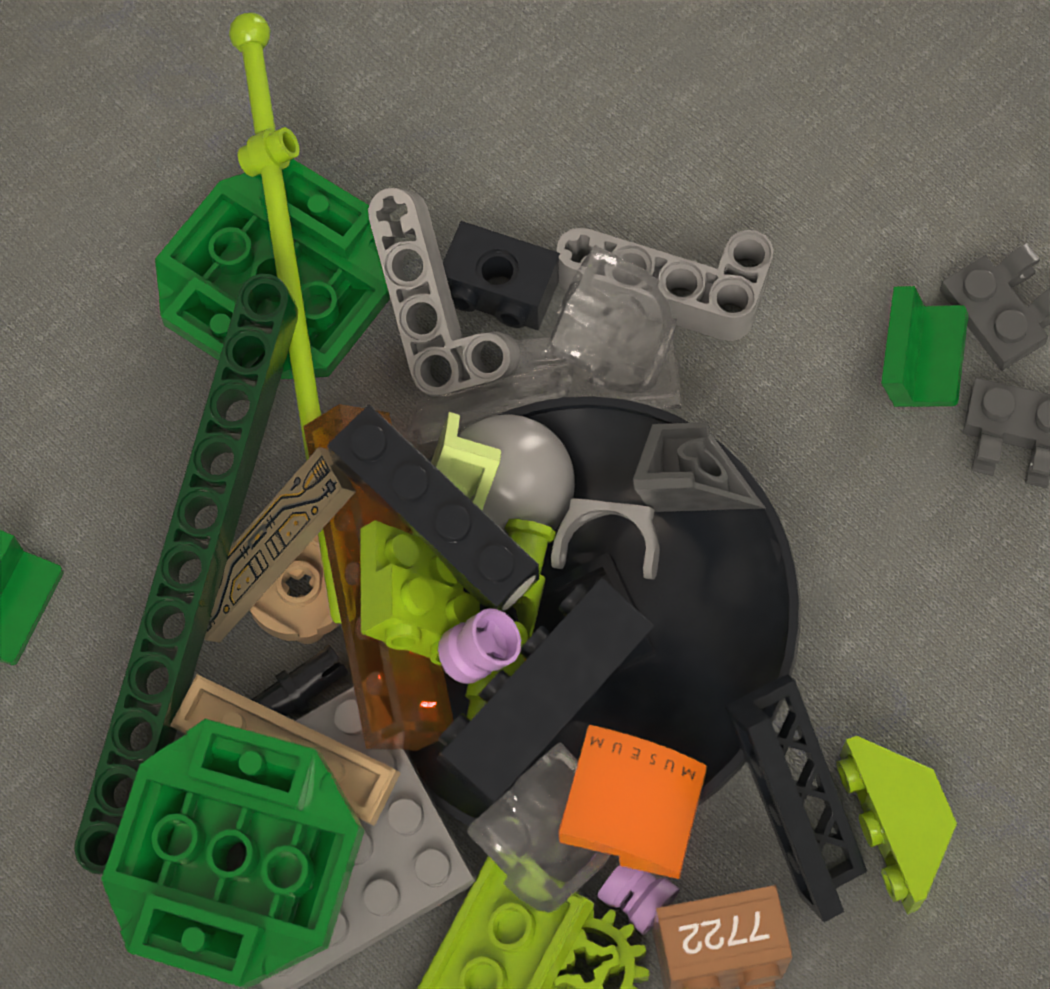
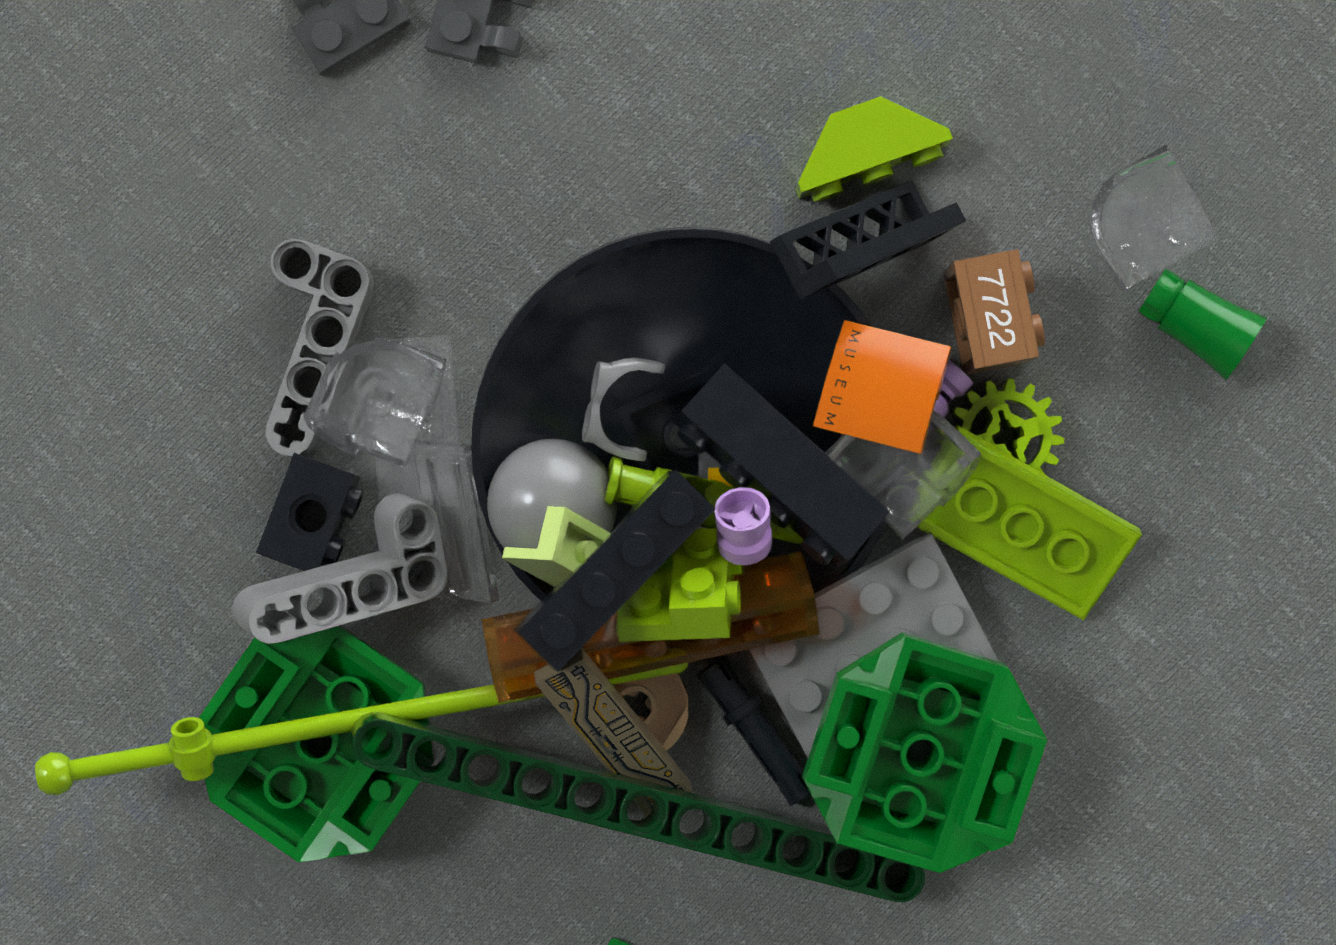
camera: 90 degrees left, 20 degrees up
(361, 778) = (777, 770): tan tile -> none
(690, 472) = (563, 325): dark grey slope -> none
(923, 351) = (397, 94): green panel -> none

